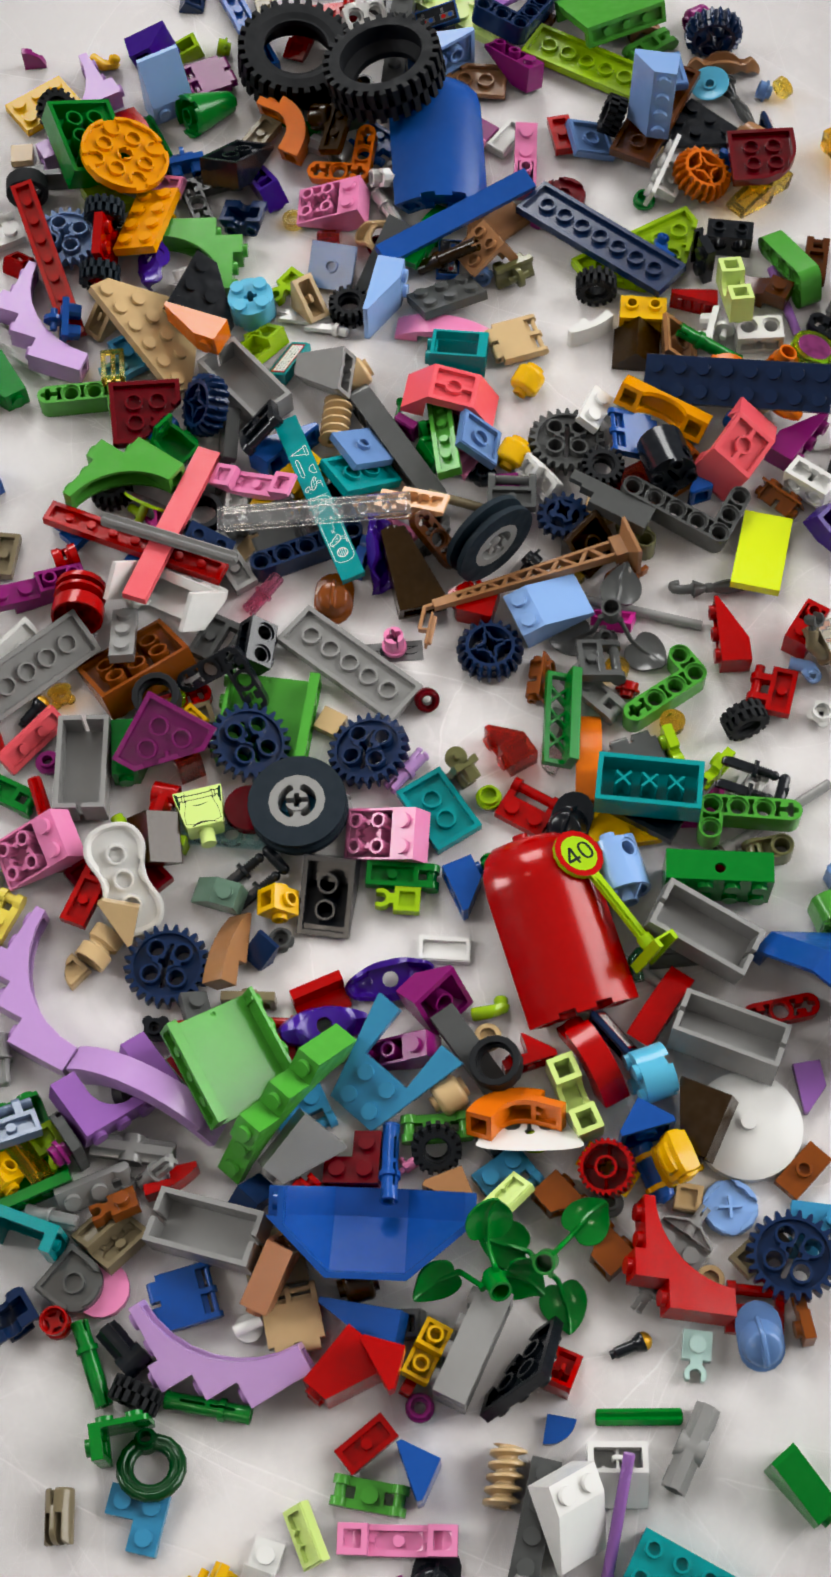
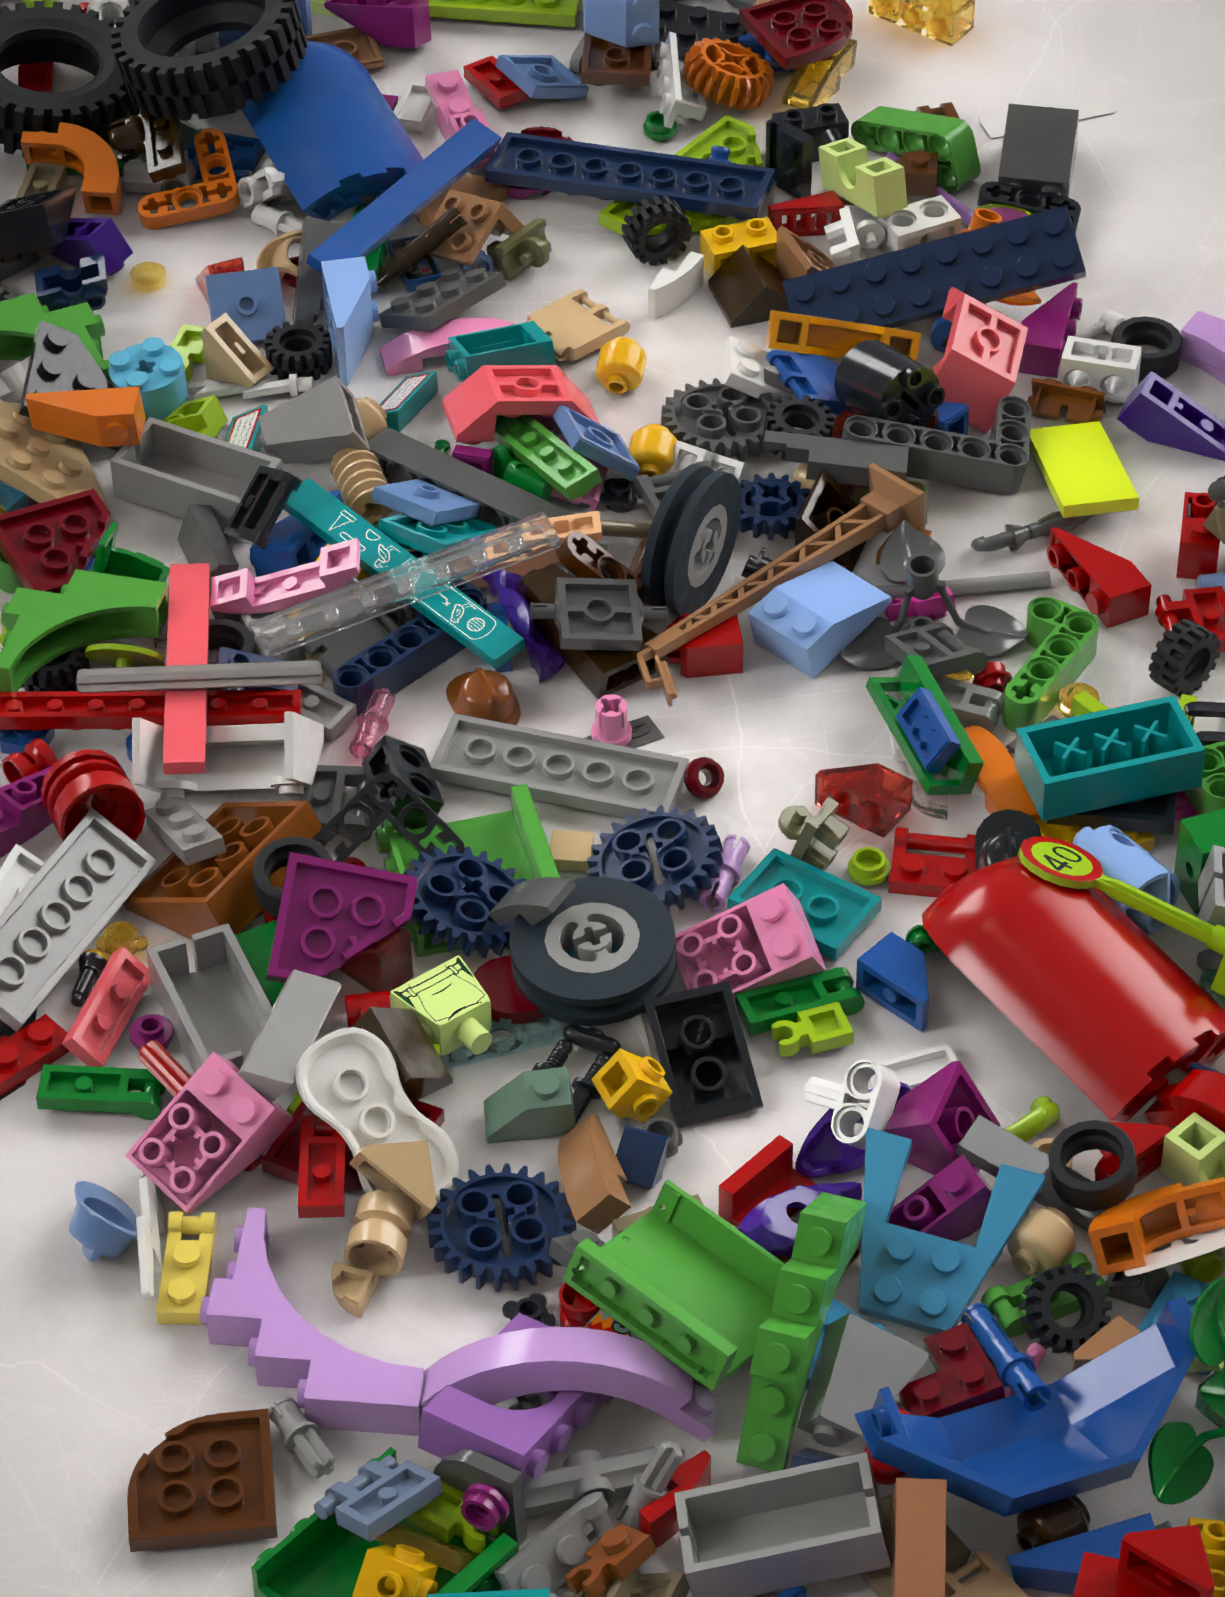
camera: 25 degrees left, 20 degrees down
(100, 805) = (288, 1032): none -> light grey slope
(205, 405) = (154, 509): dark blue gear -> none
(274, 764) = (532, 899): none -> dark grey slope
(335, 205) = (203, 236): bright pink slope -> none
(388, 970) = (853, 1101): none -> white beam
(394, 363) = (409, 399): none -> teal slope
(411, 571) = (598, 614): none -> dark grey plate
(481, 661) = (762, 691): dark blue gear -> none
(538, 667) = (864, 715): dark orange hinge -> none
(558, 724) = (928, 730): none -> blue plate
(612, 114) = (563, 34): black tyre -> none
(701, 341) = (842, 250): green pin -> none

